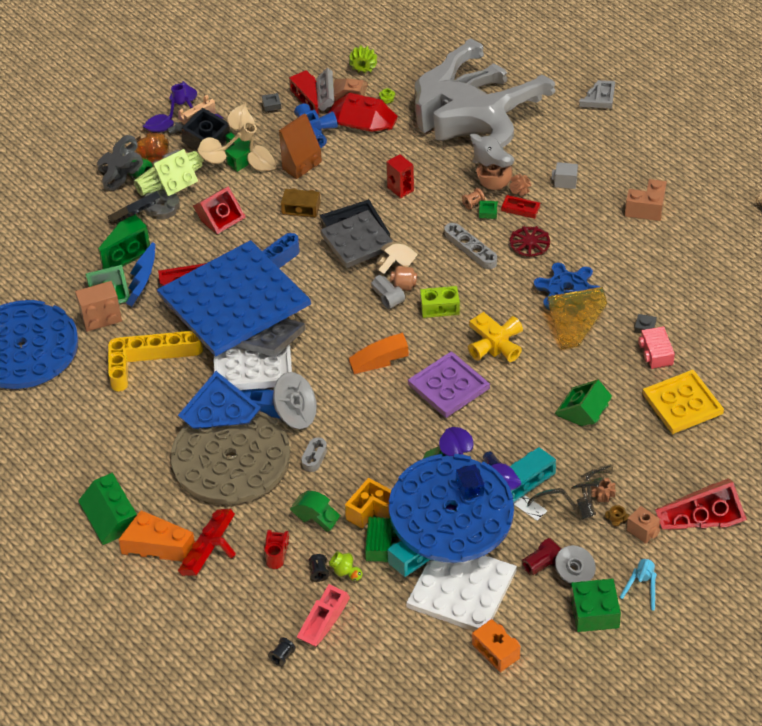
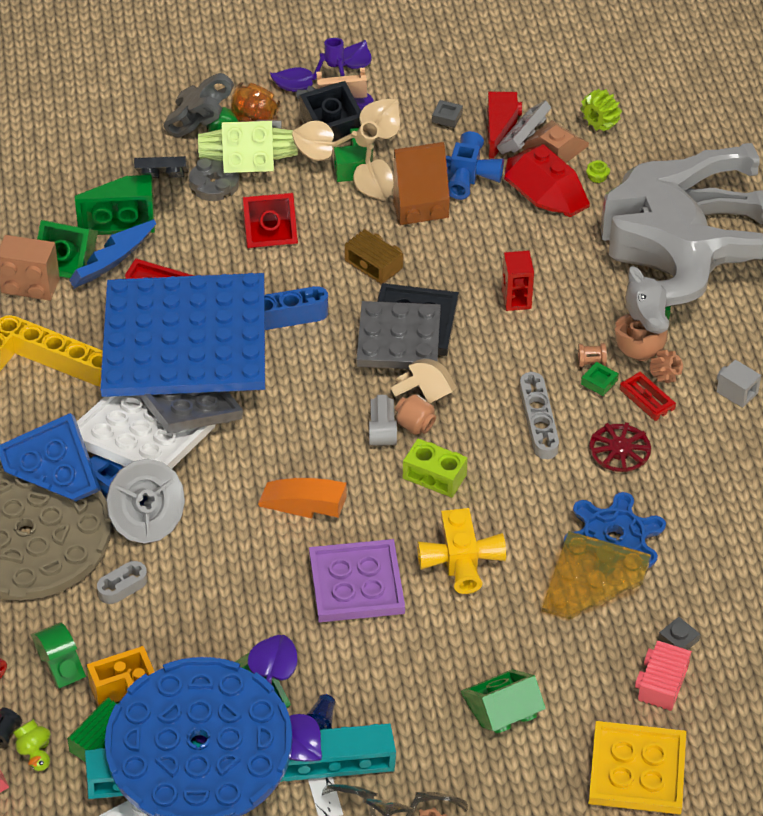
camera: 30 degrees right, 0 degrees up
(469, 482) = (237, 719): clear blue brick -> none

